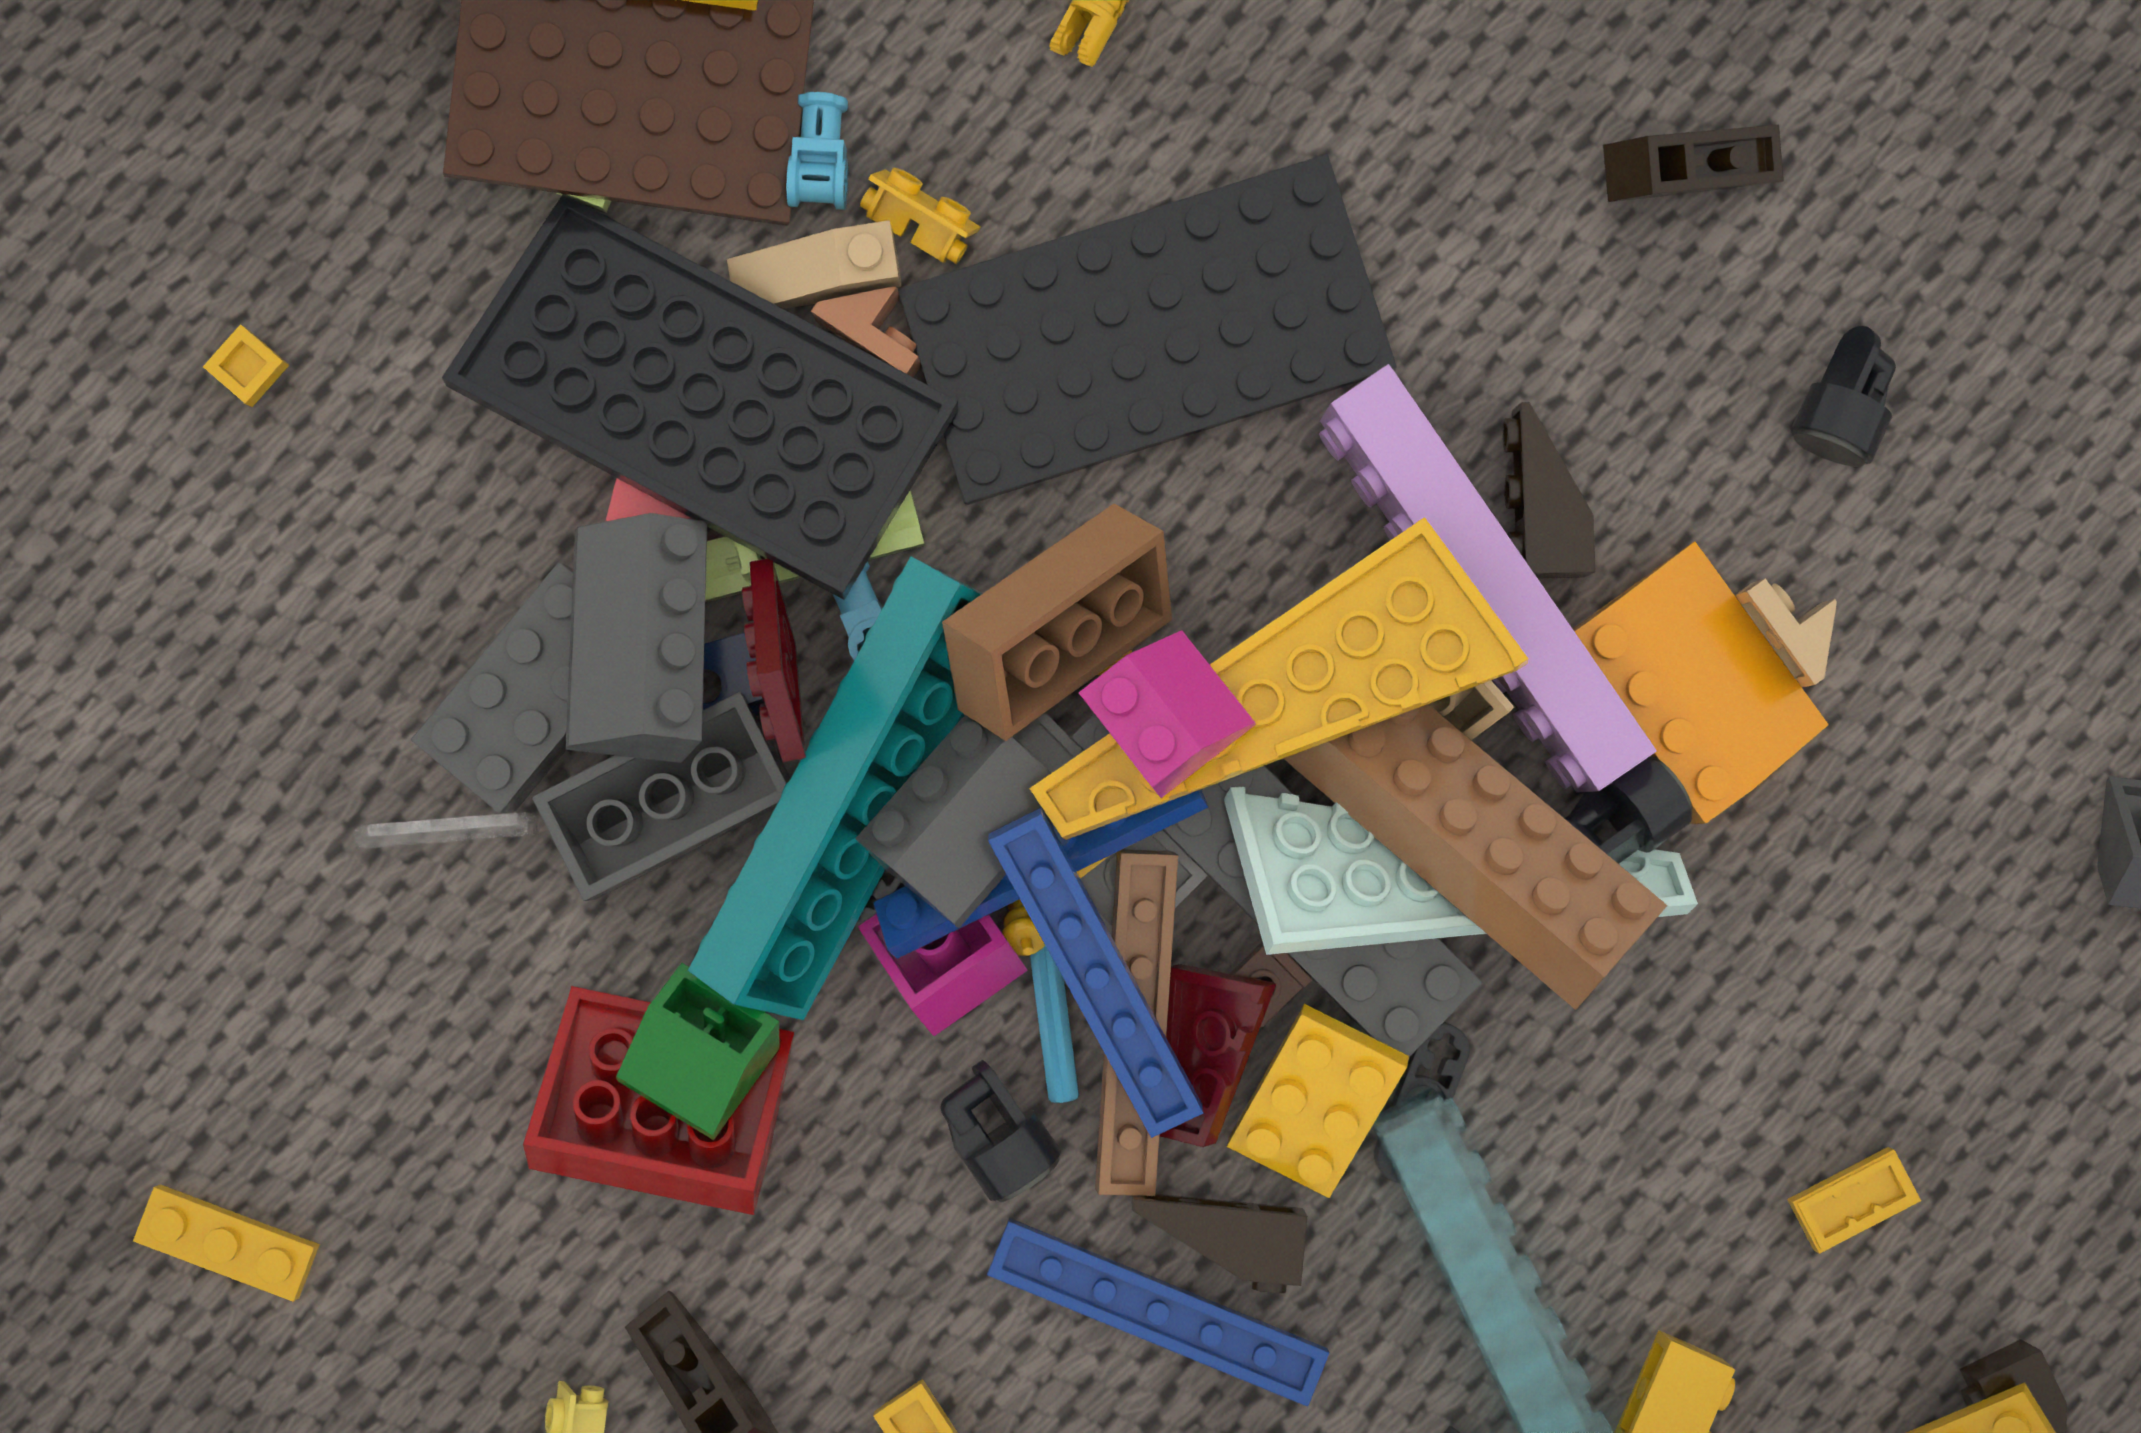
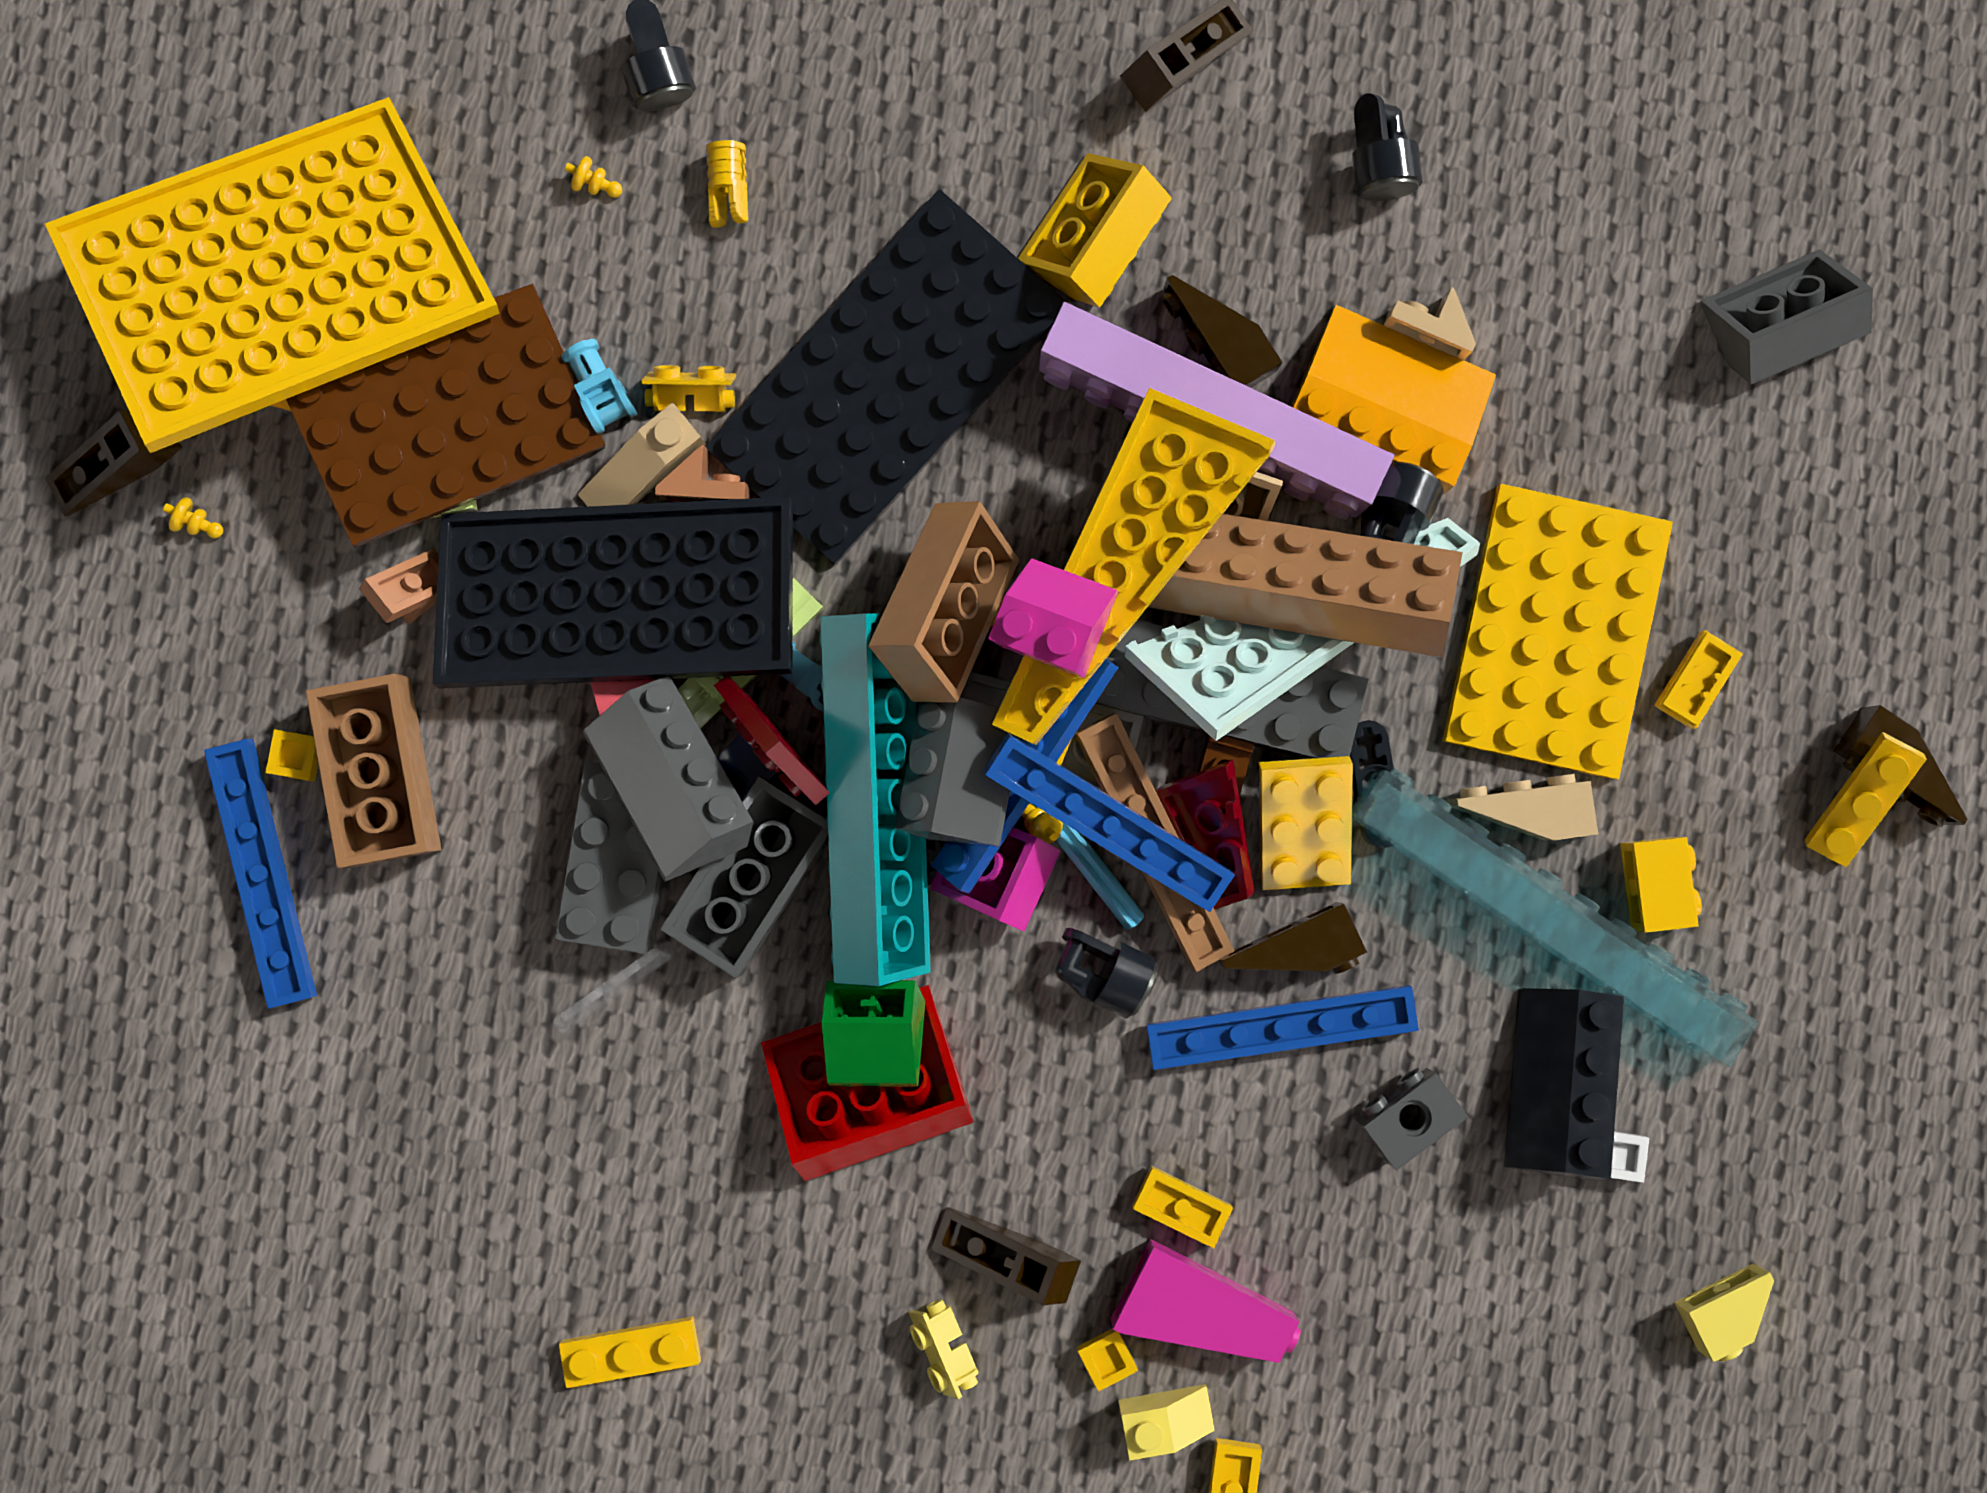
camera: 30 degrees left, 0 degrees up
(132, 474) = (260, 873): none -> blue plate
(290, 44) = (196, 521): none -> yellow hair
(321, 434) = (373, 770): none -> medium nougat brick
(474, 253) = (404, 588): none -> nougat slope
(1475, 299) = (1095, 227): none -> yellow slope
(1597, 1249) = (1547, 812): none -> tan slope
(1728, 1053) = (1557, 631): none -> yellow plate

